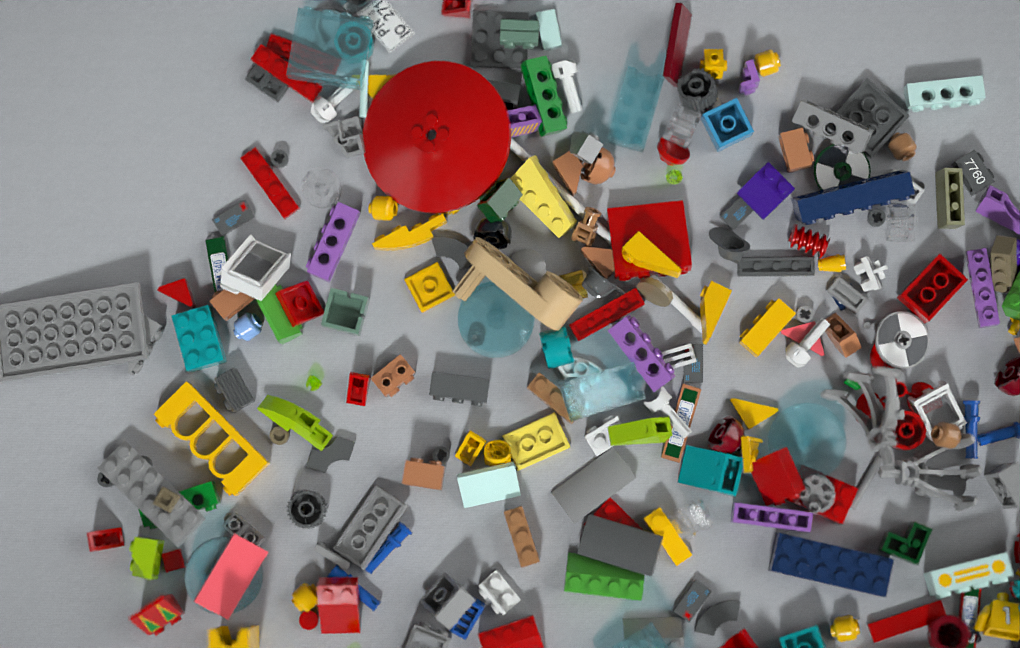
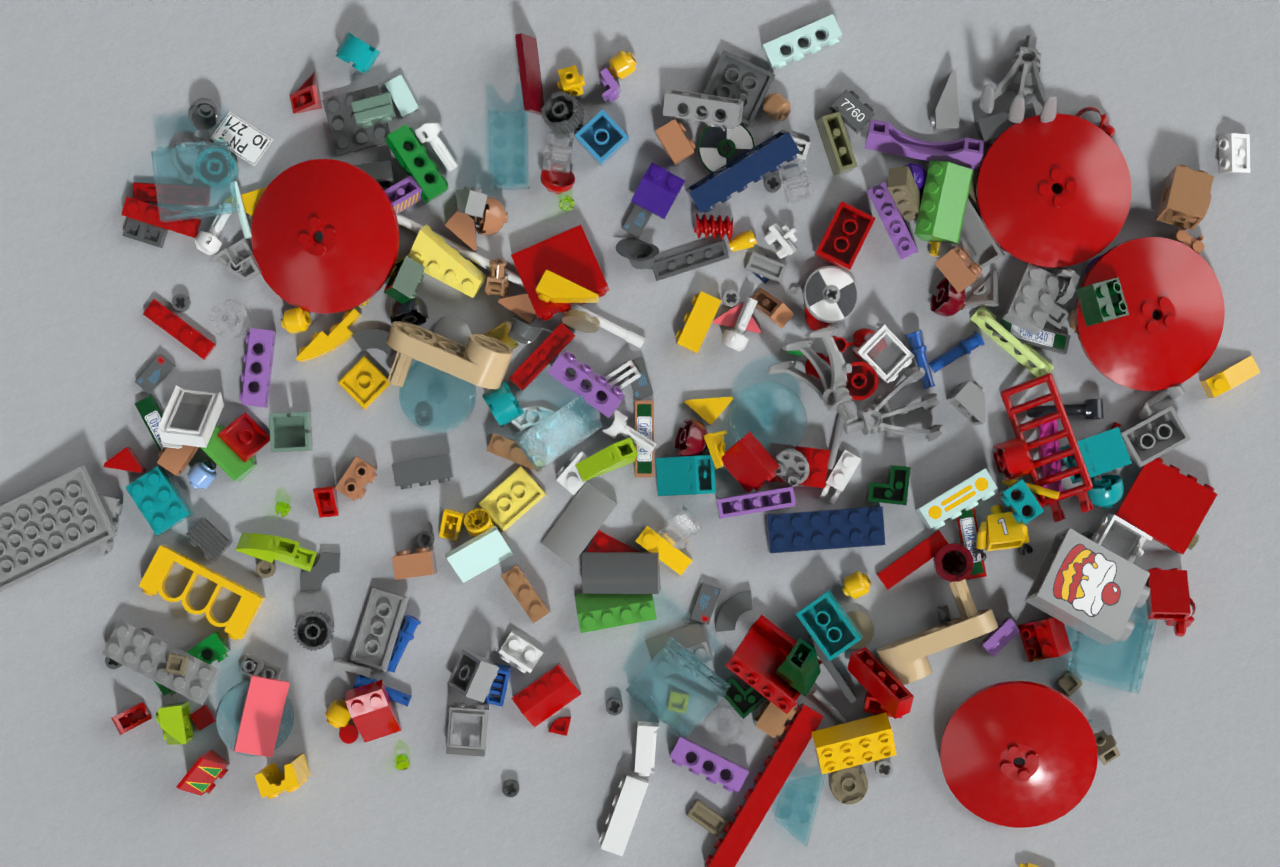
camera: 20 degrees left, 5 degrees up
(711, 307) = (639, 317): yellow slope -> none
(861, 516) = (841, 474): none -> white hinge
(946, 435) = (897, 374): medium nougat head -> none

